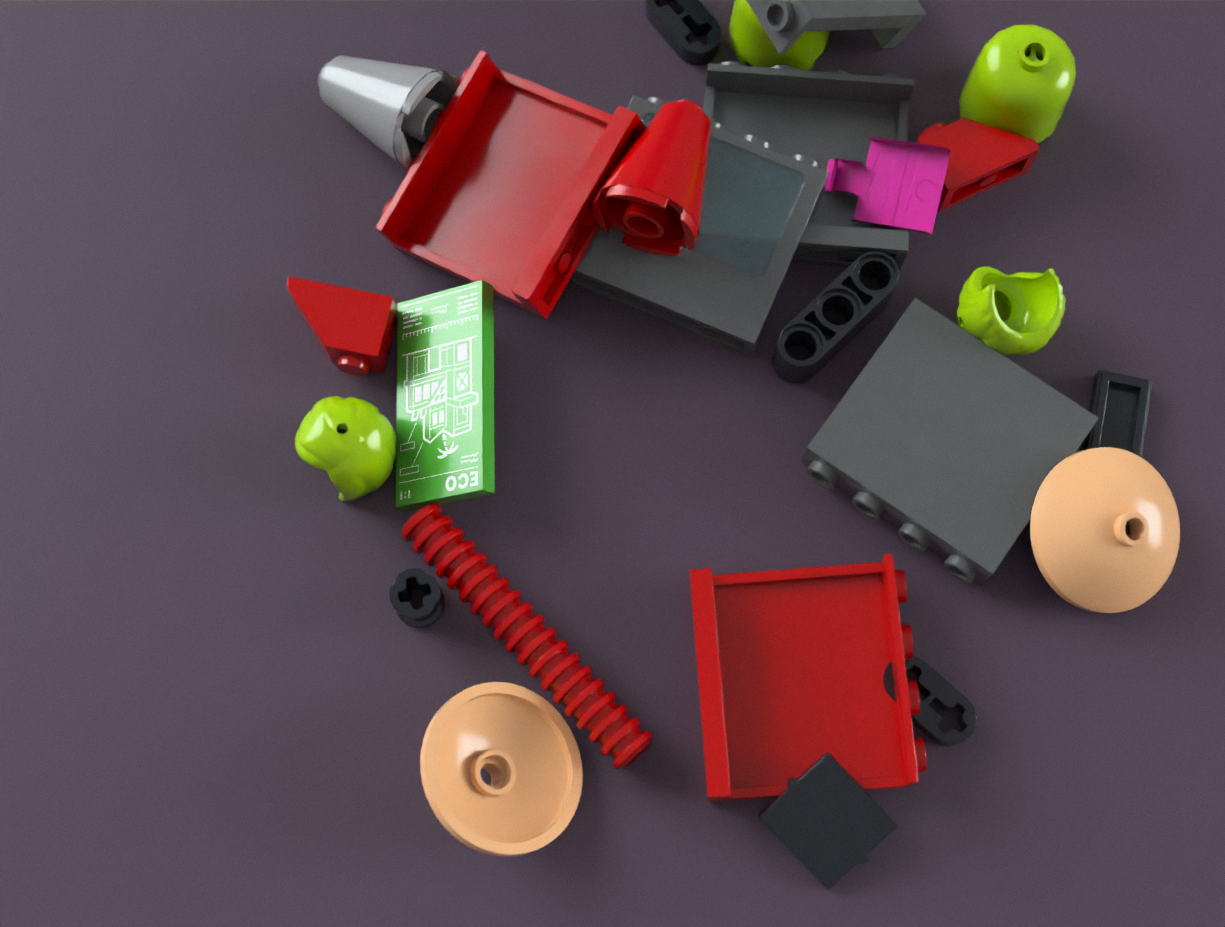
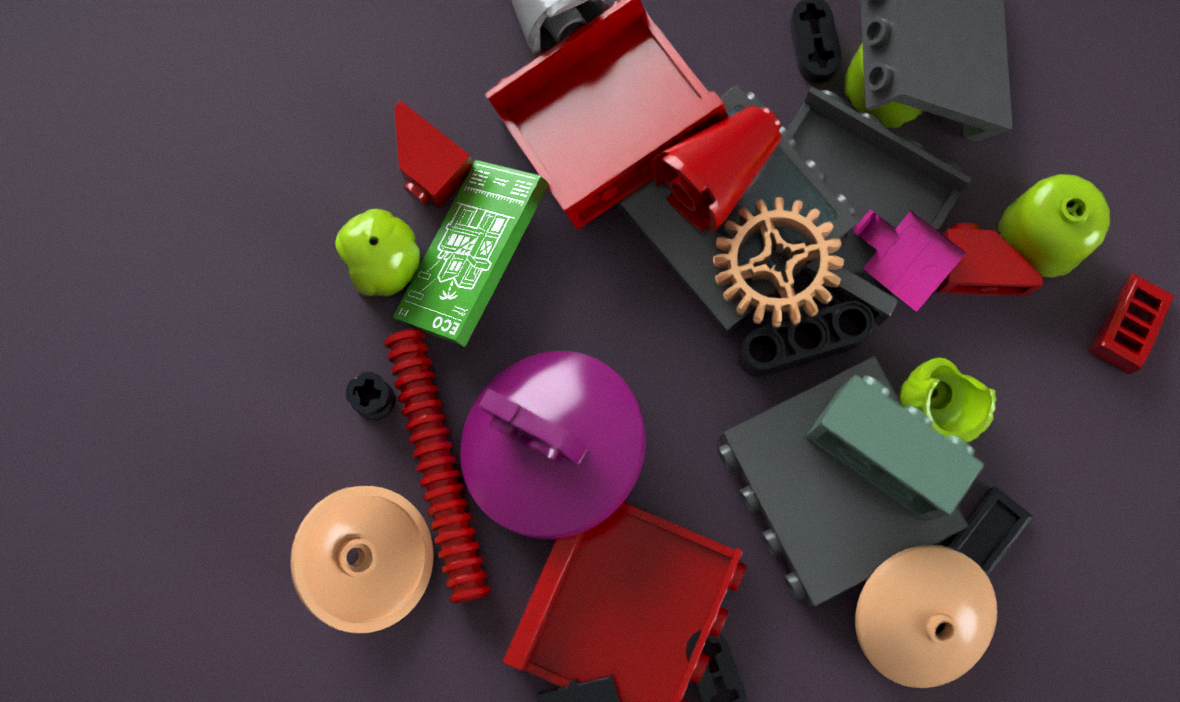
camera: 30 degrees right, 5 degrees up
(639, 548) = (553, 445): none -> magenta bracket
(745, 214) = (797, 254): none -> light nougat gear
(990, 371) = (895, 448): none -> sand green brick
(1142, 183) = (1113, 351): none -> red slope

